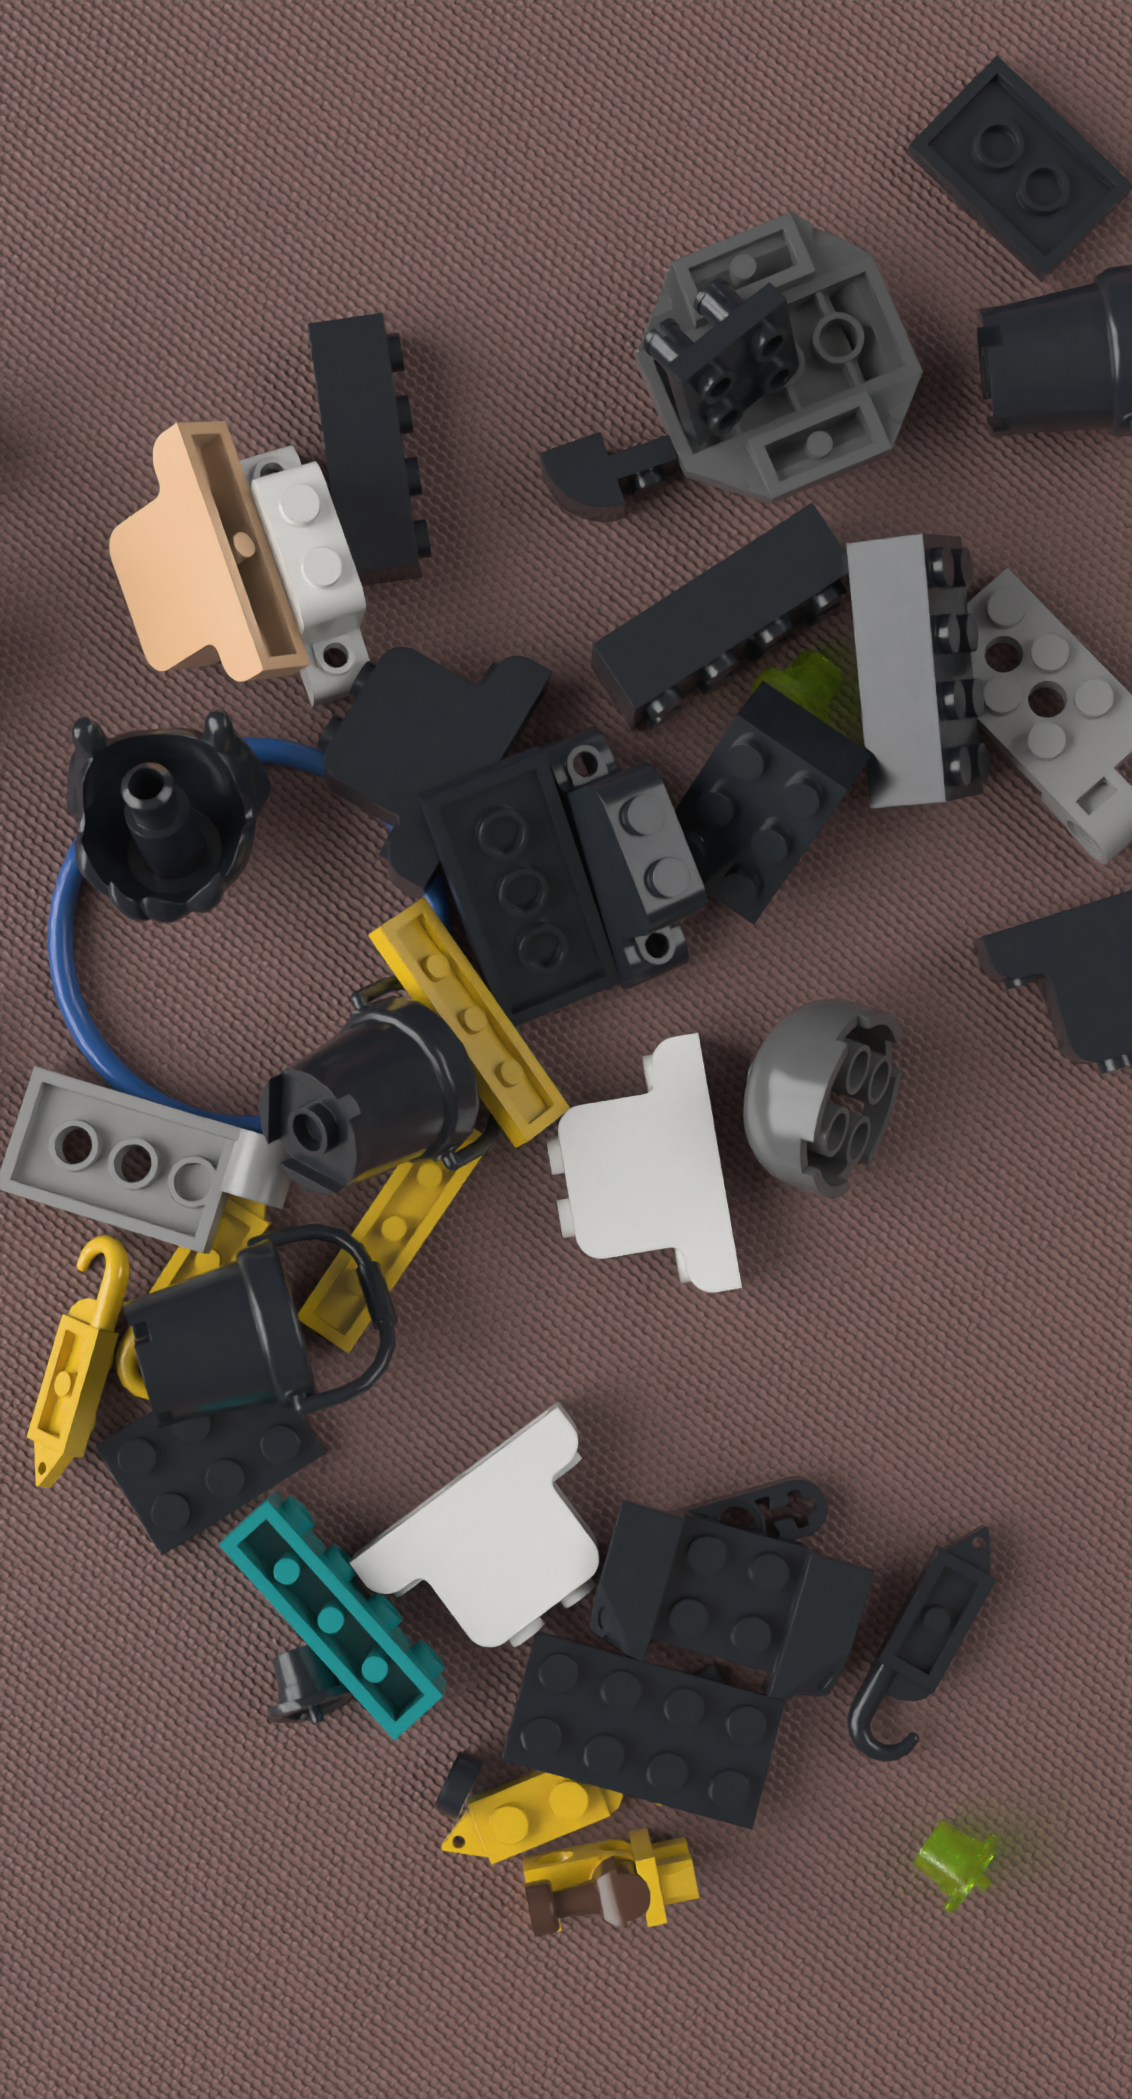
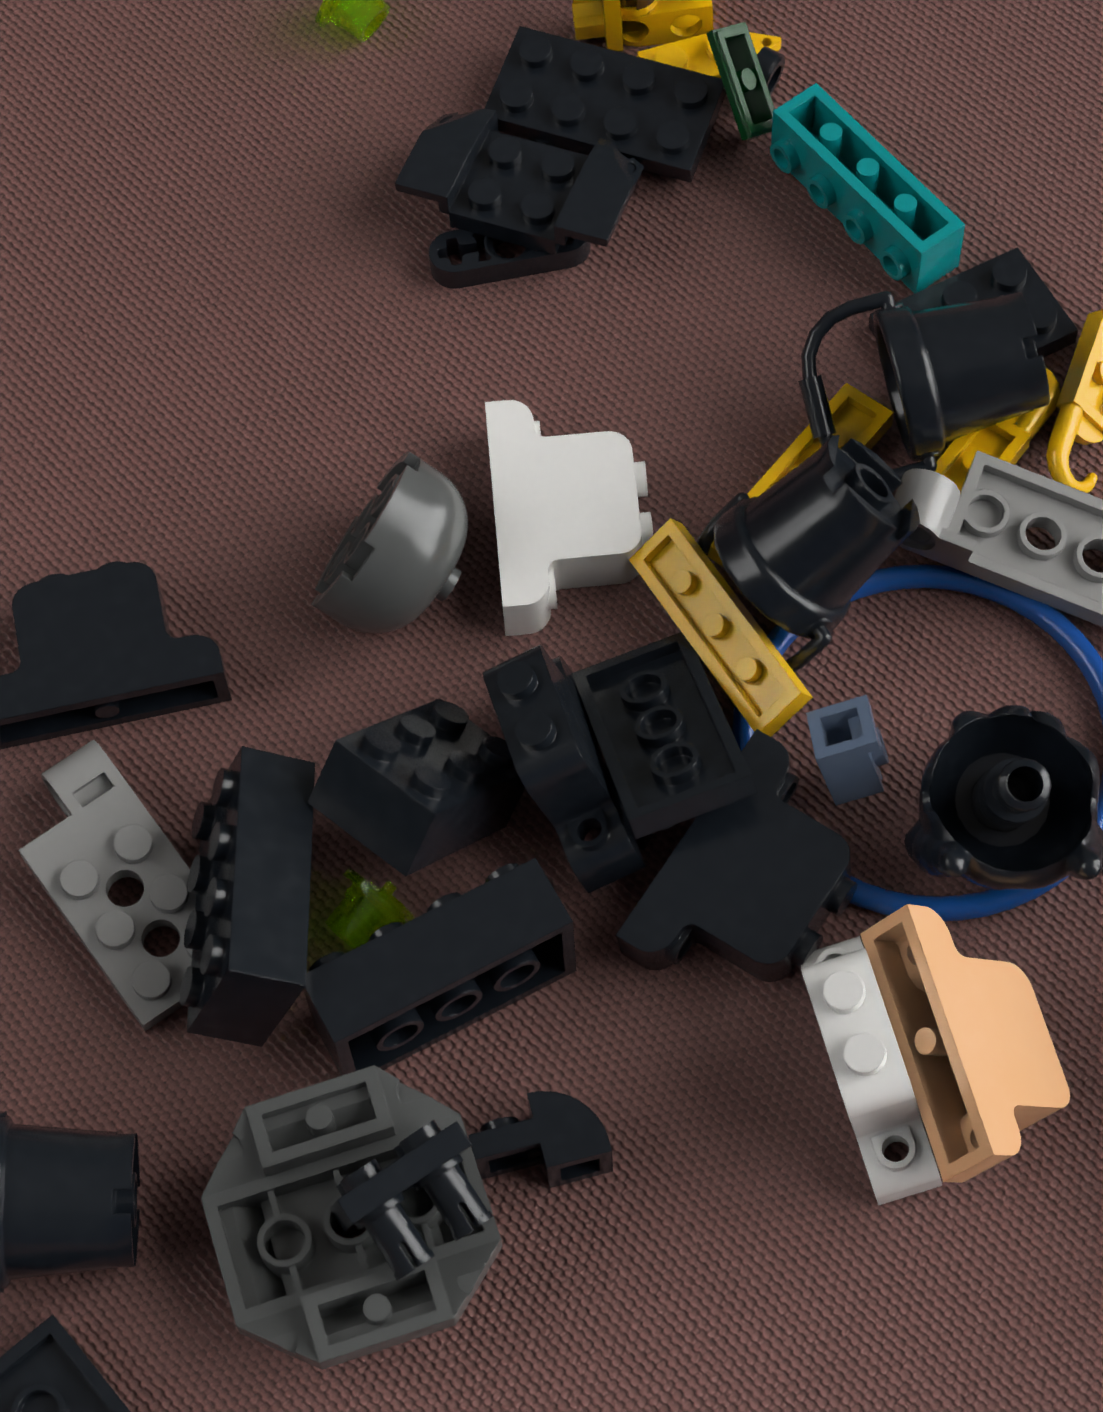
camera: 170 degrees left, 25 degrees down
(306, 1688) = (897, 133): black piece -> none
(330, 884) = (848, 749): none -> sand blue brick
(365, 446) = (796, 1186): black brick -> none
(482, 1751) = (742, 80): none -> dark green slope
(495, 1538) = (724, 243): white brick -> none
(923, 1638) = (356, 160): black plate -> none

